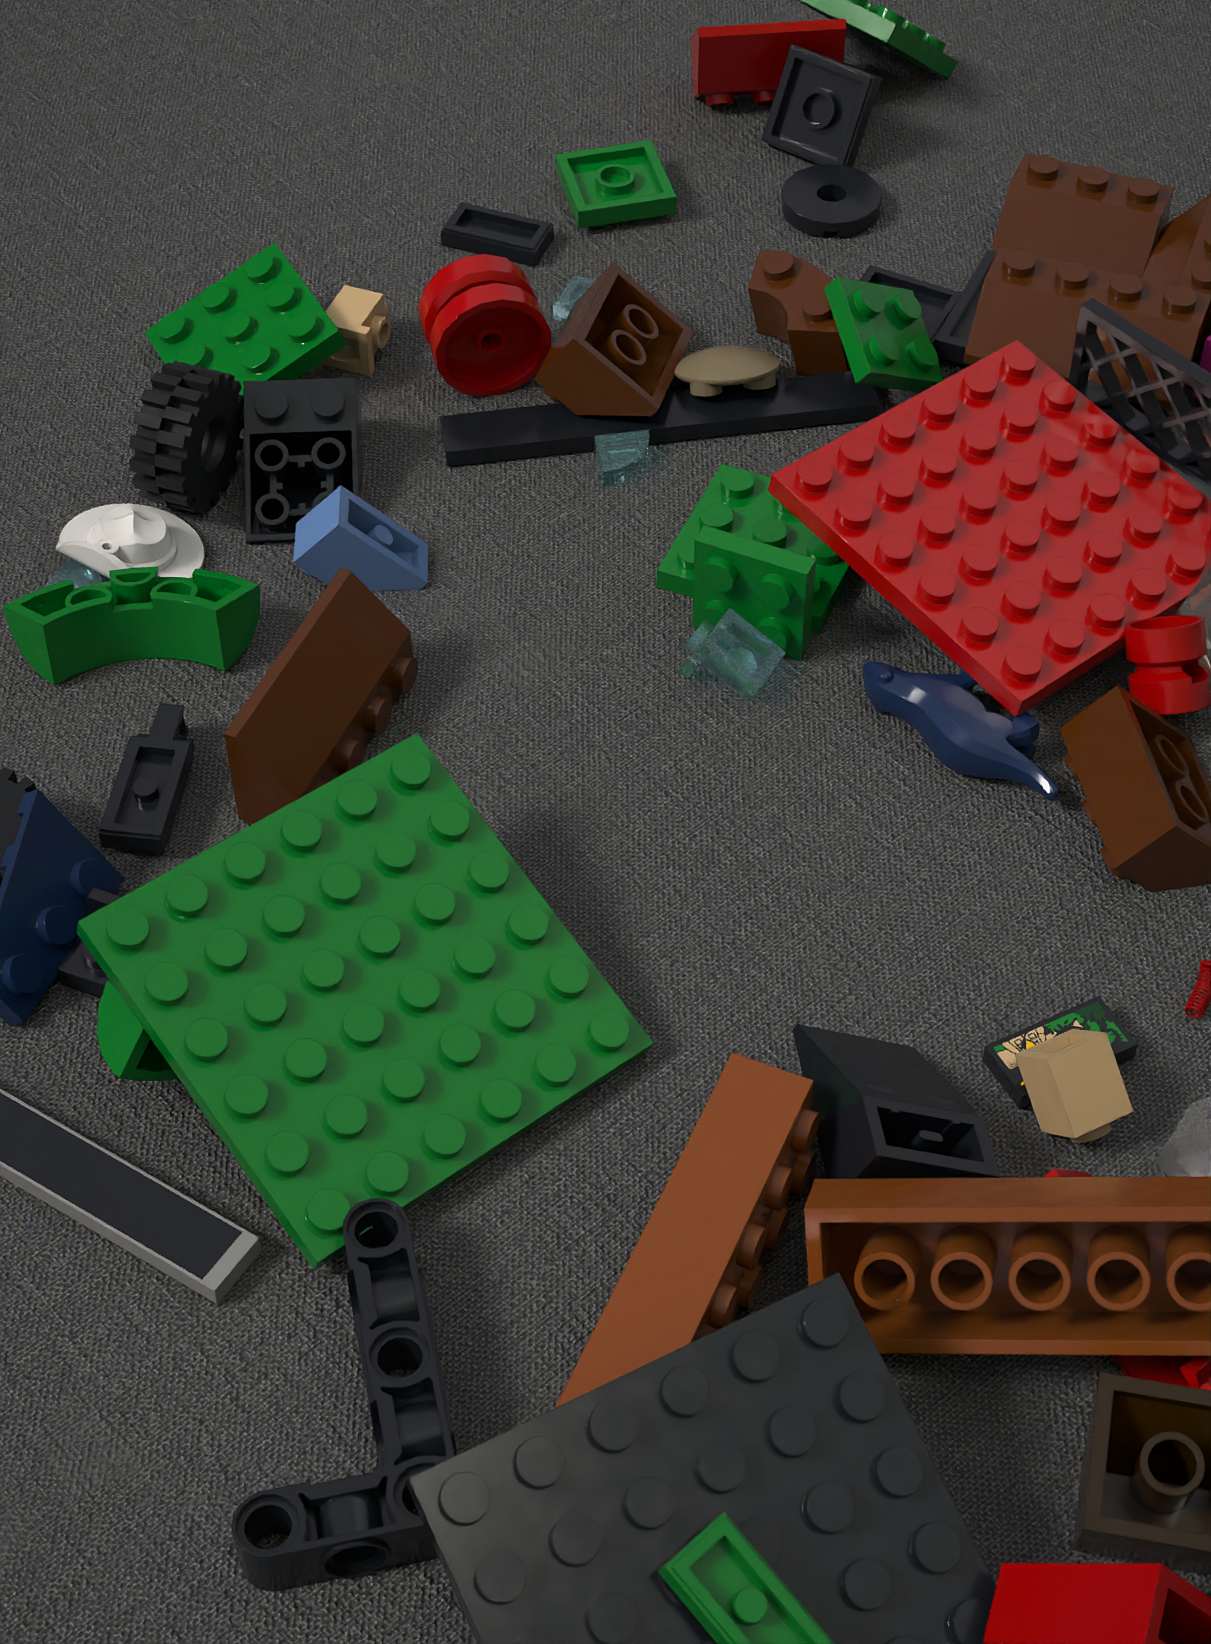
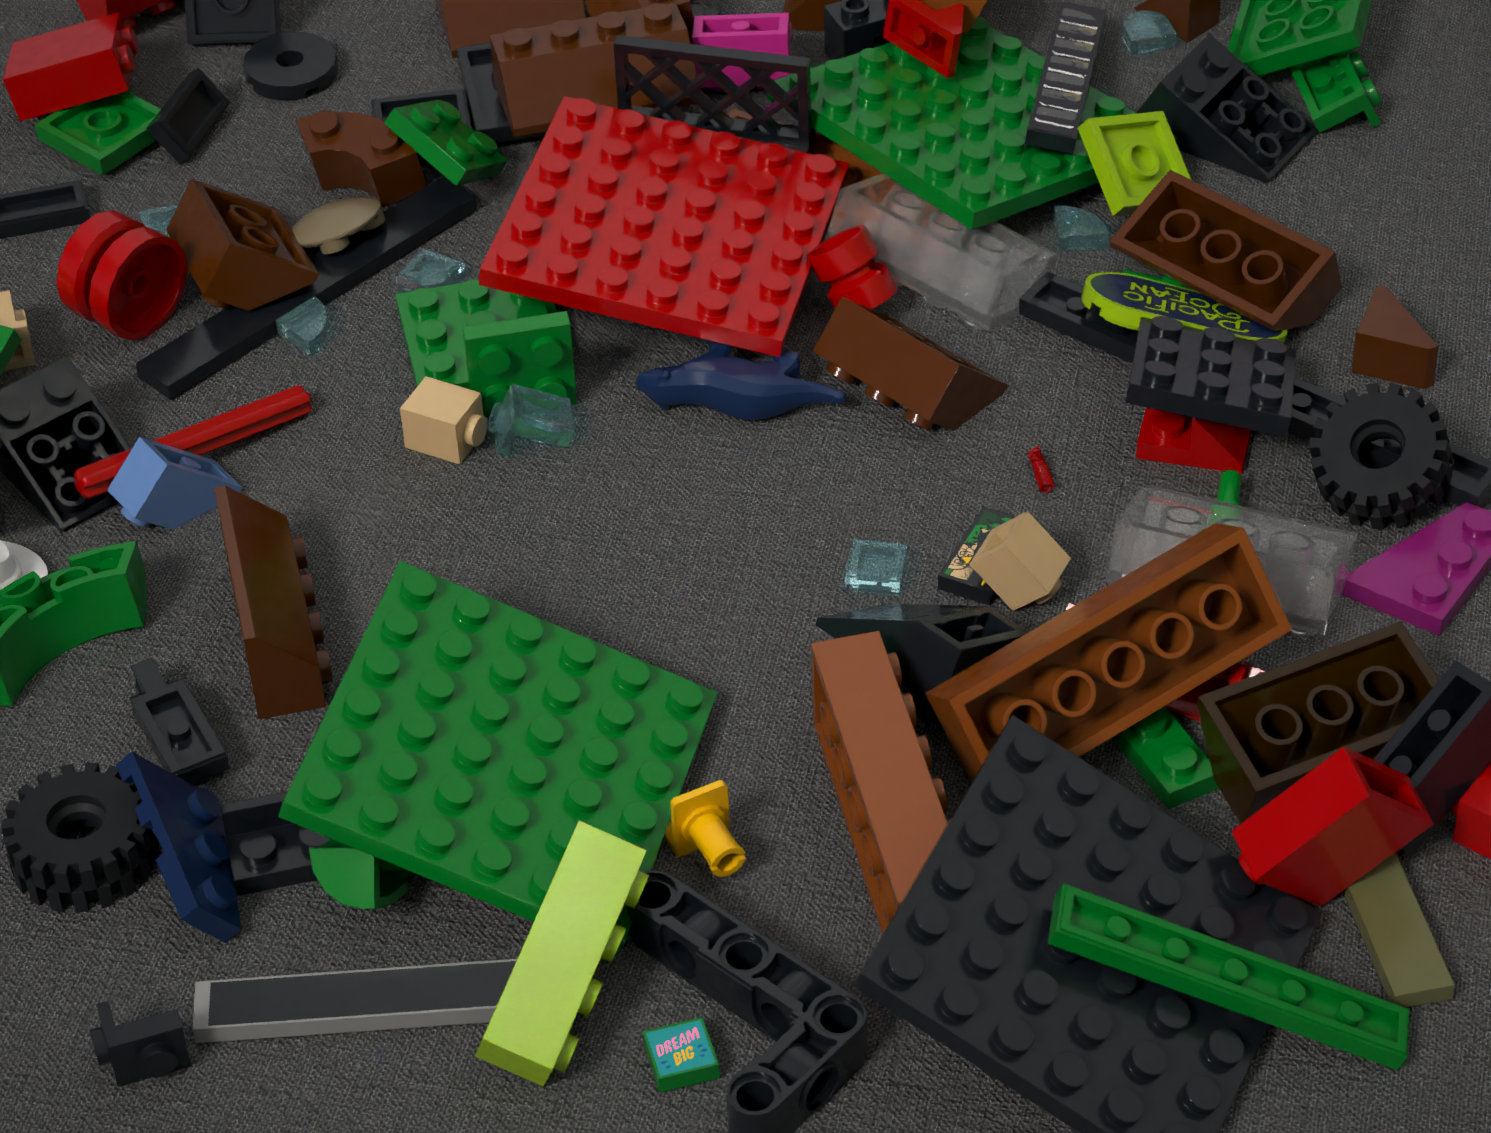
camera: 35 degrees left, 5 degrees down
(222, 1242) = (561, 955): none -> lime brick
(272, 1422) = (681, 1054): none -> tile
(436, 516) = (206, 435): none -> red axle
(502, 1181) = (703, 823): none -> yellow bracket
(623, 113) = (70, 66): none -> red brick
(648, 611) = (443, 420): none -> tan brick
(693, 205) = (188, 115): none -> black tile
(769, 454) = (430, 271): none -> clear light blue tile
(935, 999) = (876, 567): none -> clear light blue tile
(1054, 1414) = (1167, 758): none -> green plate

